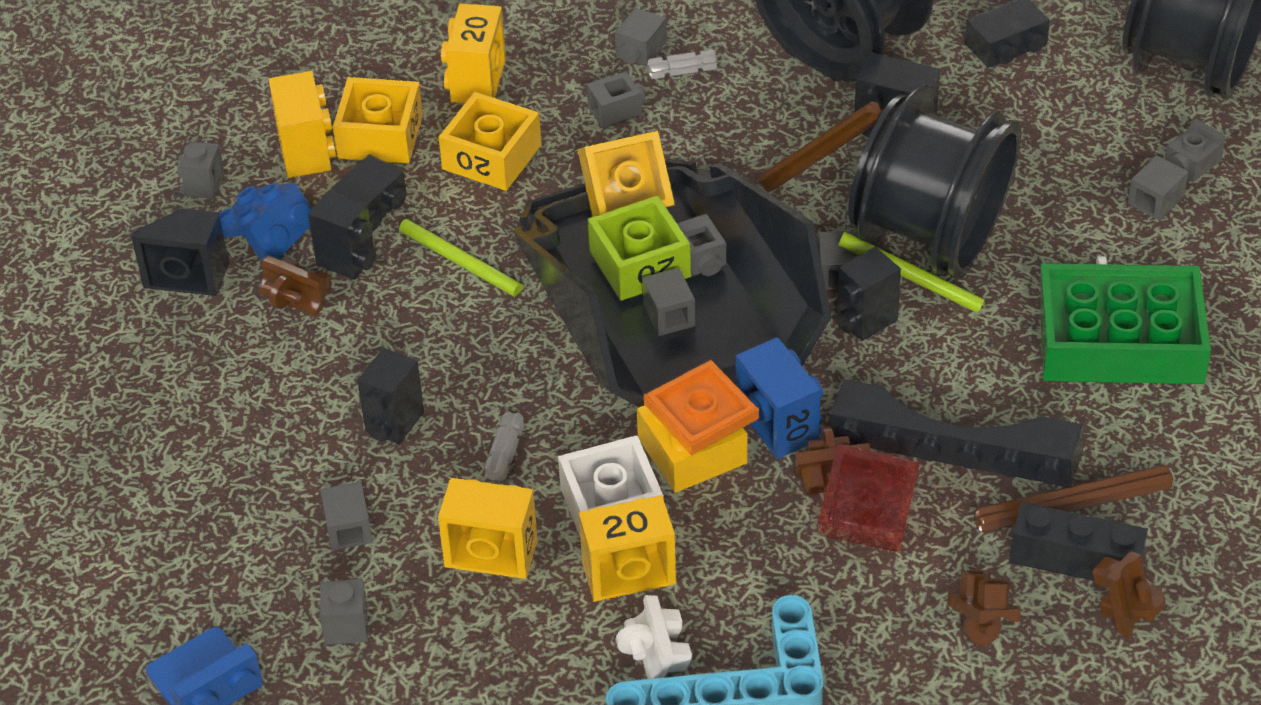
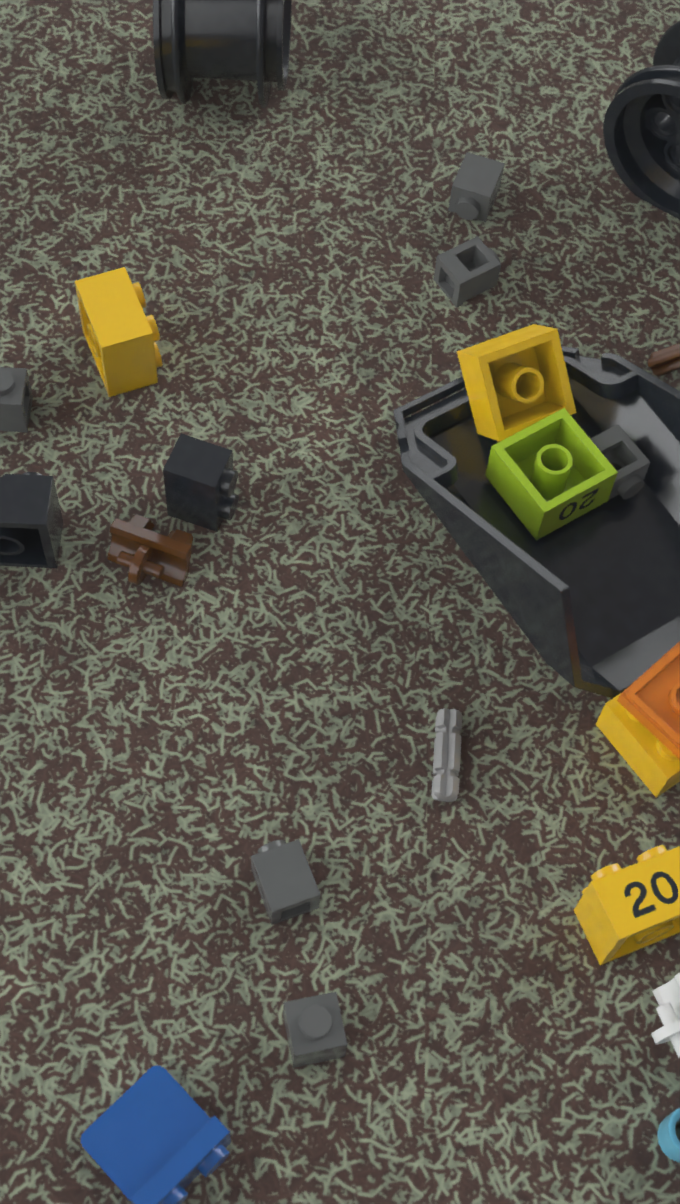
camera: 15 degrees left, 15 degrees up
(268, 218) = (99, 458): blue bracket -> none
(376, 185) = (212, 412): black brick -> none
(378, 119) = (205, 318): yellow brick -> none
(390, 396) = (308, 710): black brick -> none
(461, 257) = (336, 492): lime bar -> none
(474, 52) = (299, 223): yellow brick -> none
(488, 527) = (470, 891): yellow brick -> none
(490, 141) = (341, 337): yellow brick -> none
(606, 476) = (596, 817): white brick -> none
(668, 301) = (596, 541): dark grey brick -> none
(682, 64) = (526, 217): light grey axle -> none

